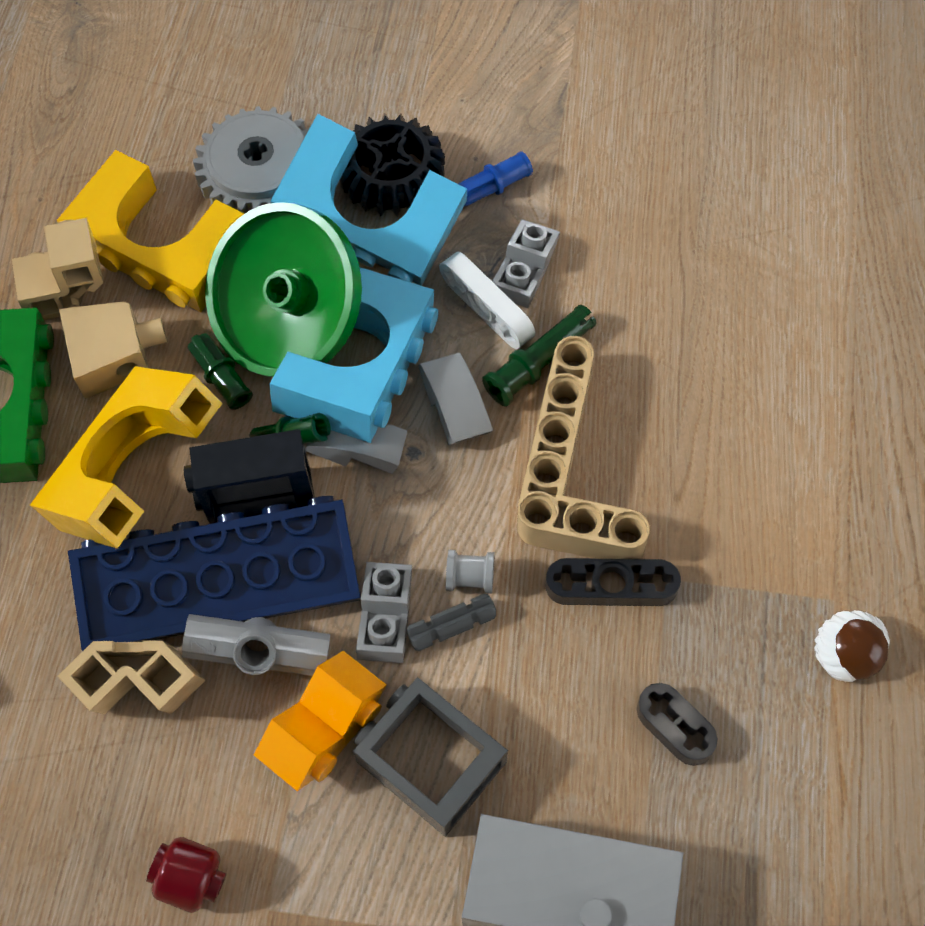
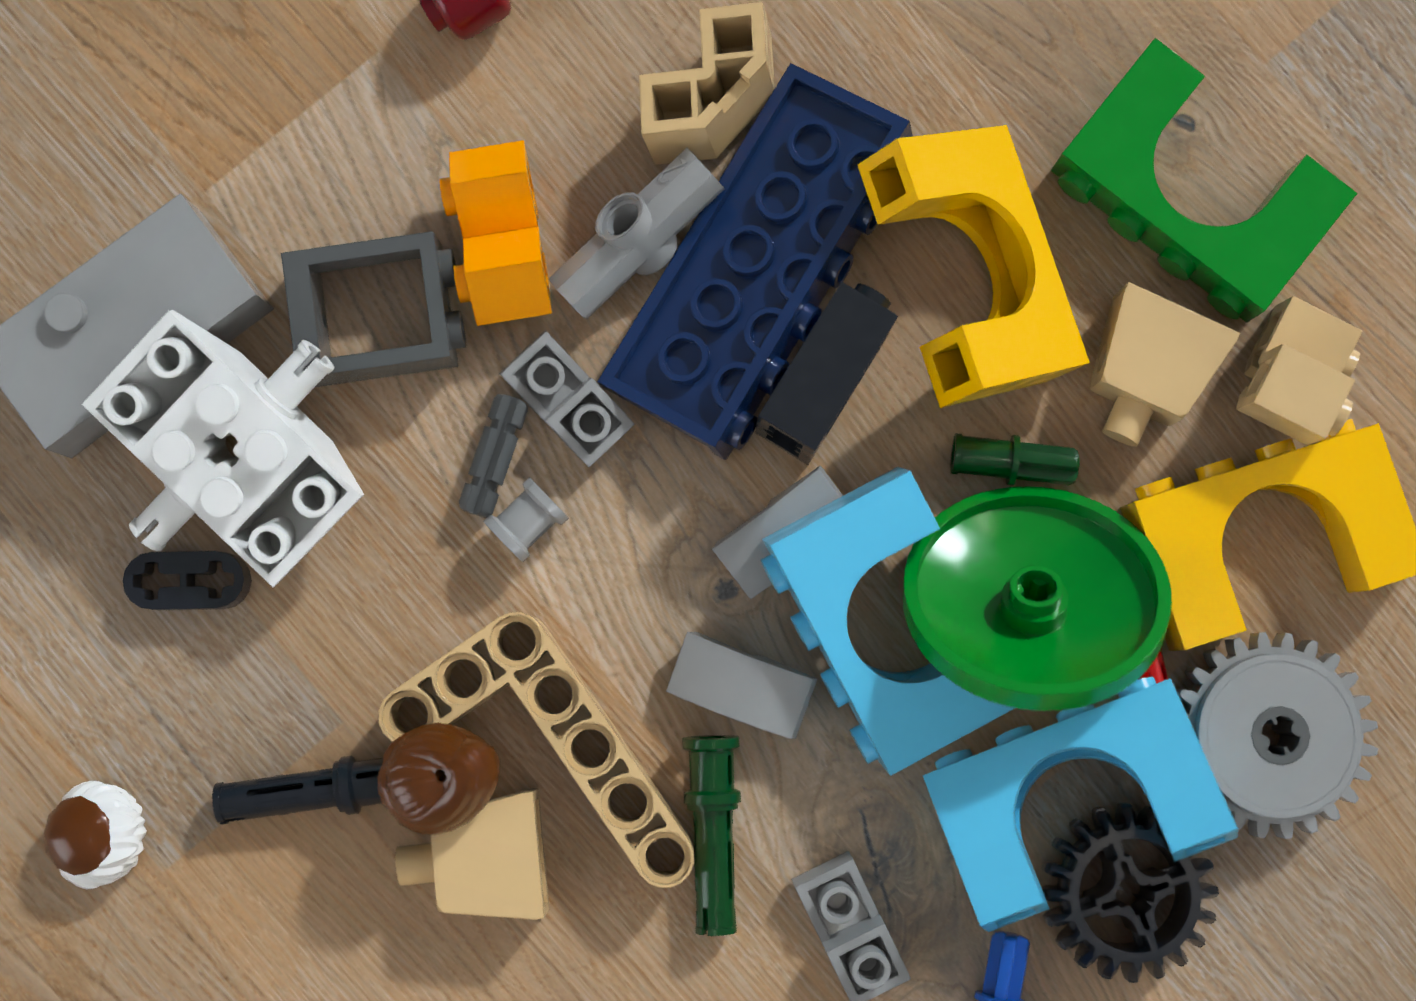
camera: 130 degrees right, 20 degrees up
(313, 427) = (851, 463): dark green axle -> none
(487, 300) = (836, 834): white beam -> none
(580, 748) = (175, 408): none -> white slope
(642, 479) = (437, 778): none -> reddish brown hair
(646, 593) = (341, 682): black beam -> none
(659, 442) = (486, 865): none -> tan torso
(758, 589) = (344, 786): none -> black pin

